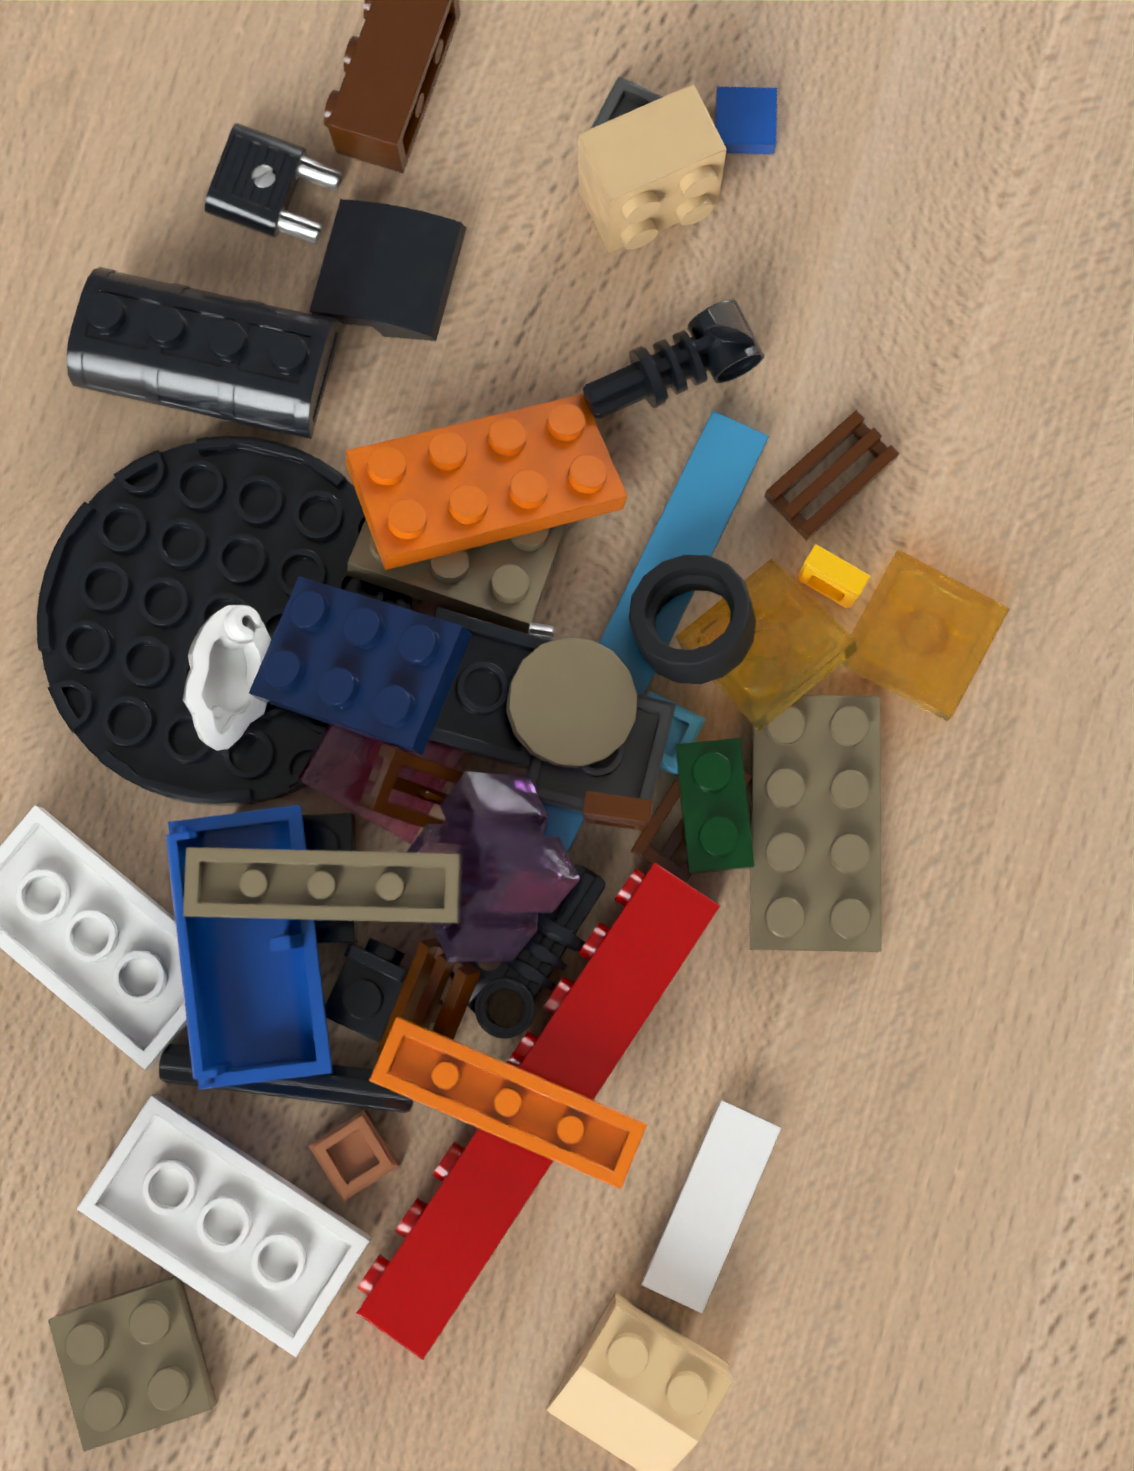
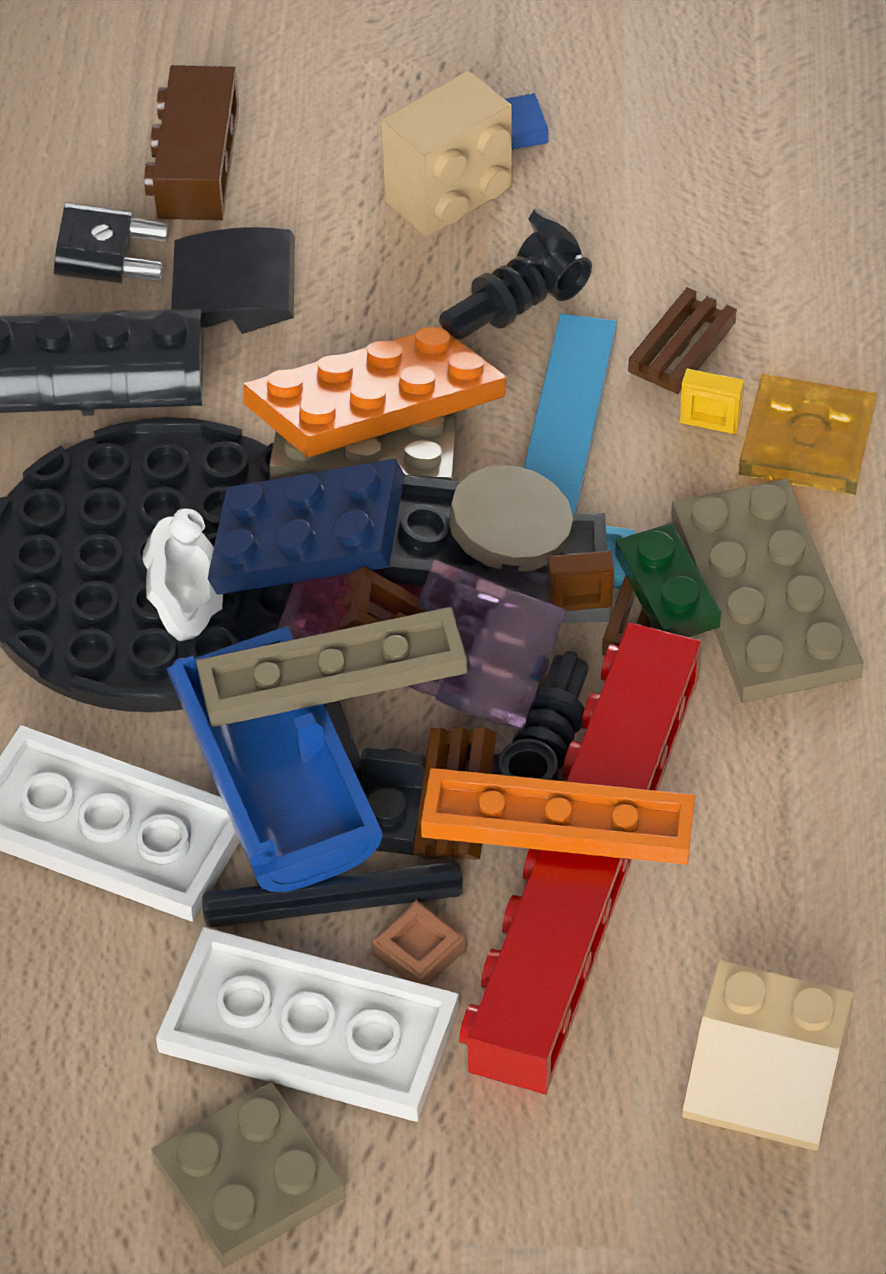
camera: 20 degrees left, 30 degrees down
(678, 577) = (606, 466): black tyre -> none
(710, 1206) = (782, 893): white tile -> none
(791, 648) = (670, 460): clear yellow plate -> none

